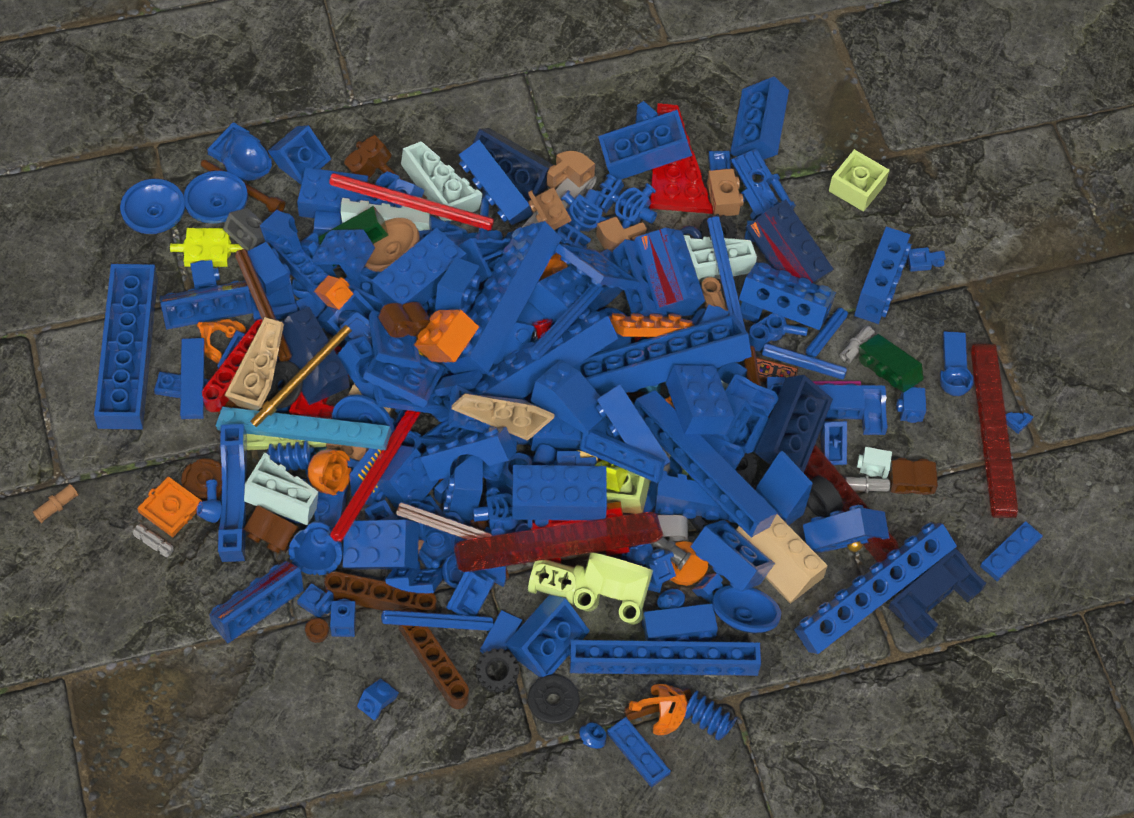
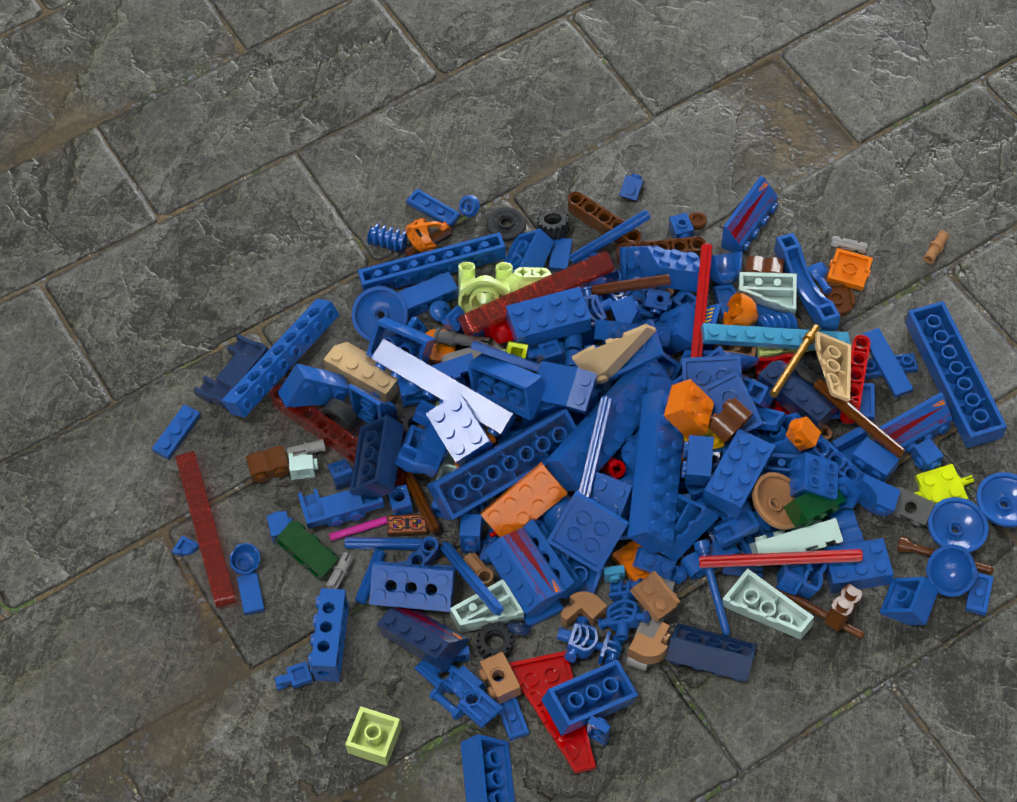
camera: 170 degrees right, 0 degrees up
(226, 326) = (887, 397): orange helmet -> none
(316, 601) = (711, 237): blue bracket -> none
(496, 184) = (714, 610): blue slope -> none

